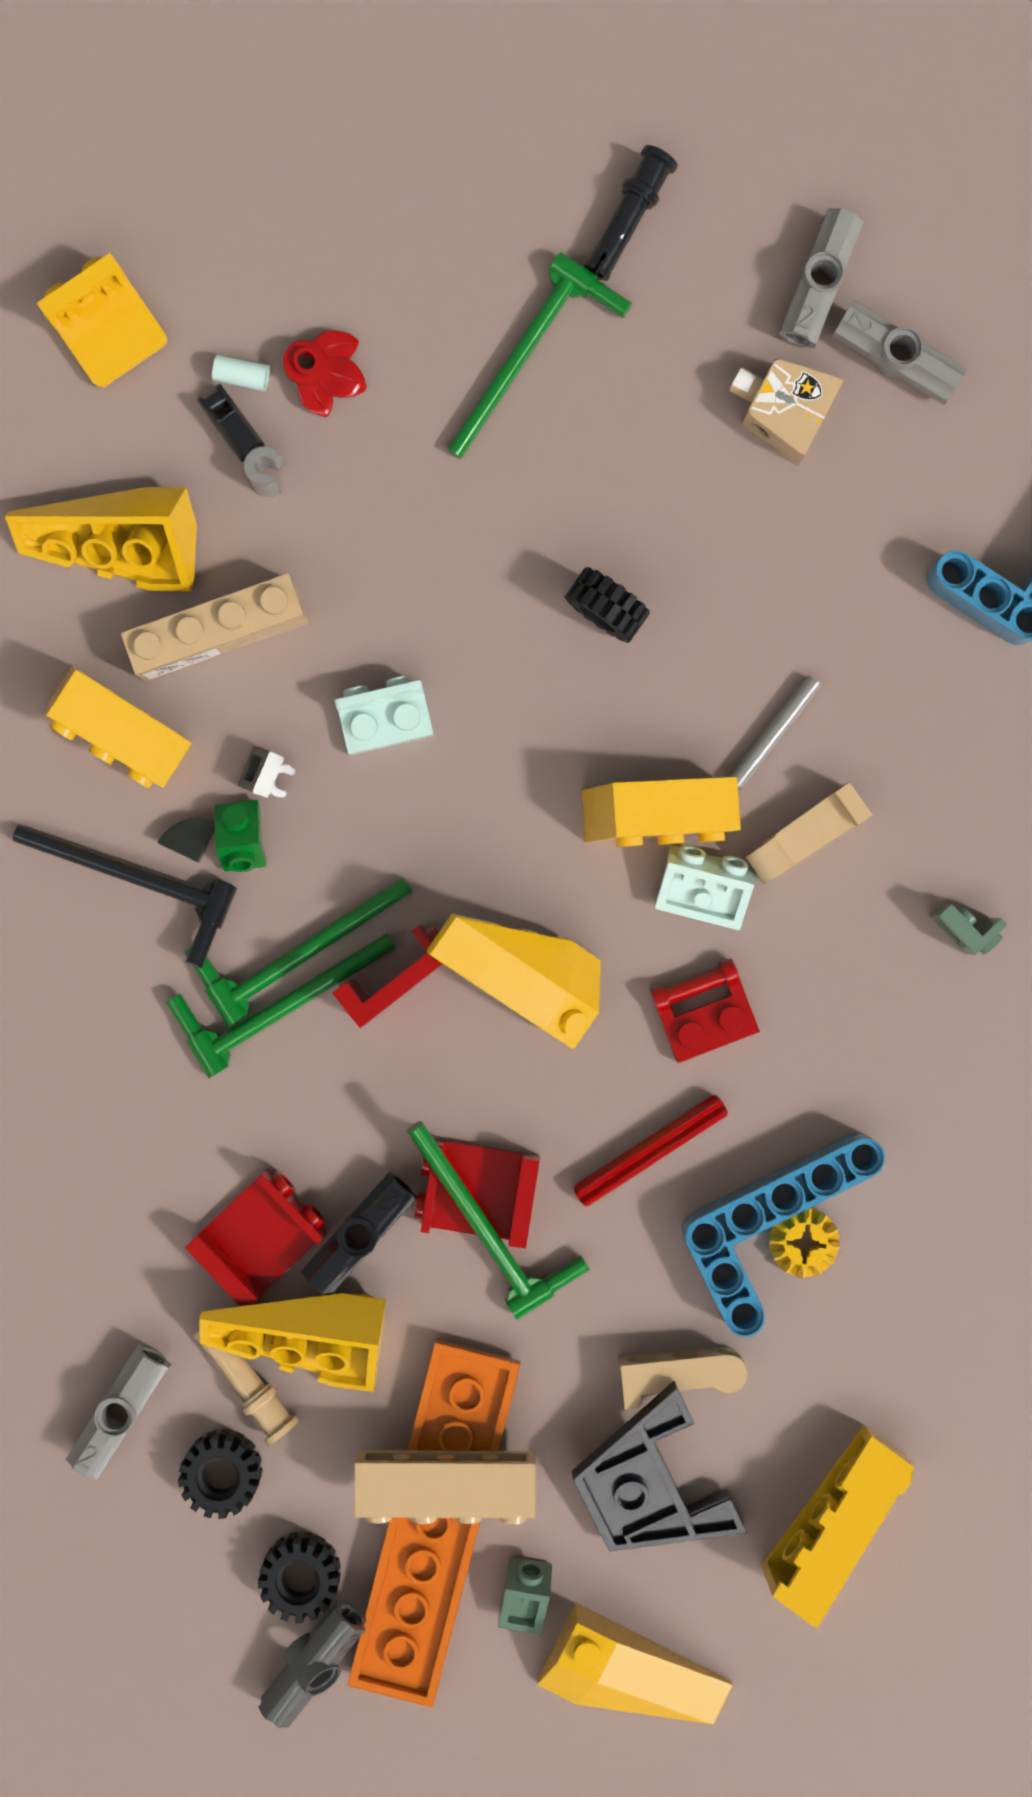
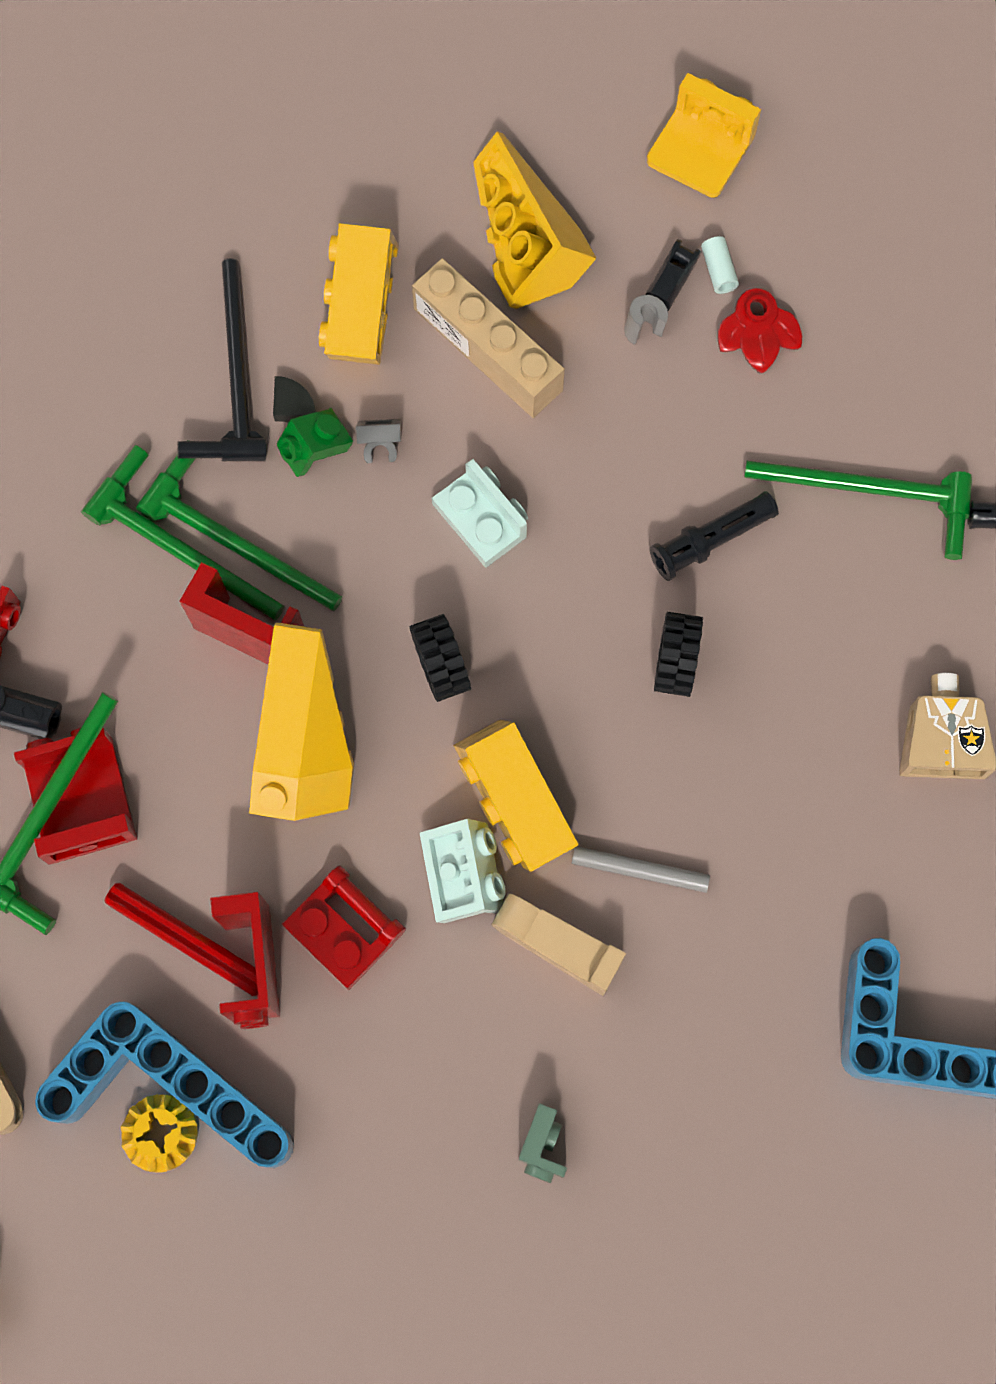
camera: 65 degrees right, 15 degrees down
(506, 534) = (693, 539): none -> black pin
(510, 817) = (440, 657): none -> black tyre
(659, 1089) = (243, 912): none -> red panel

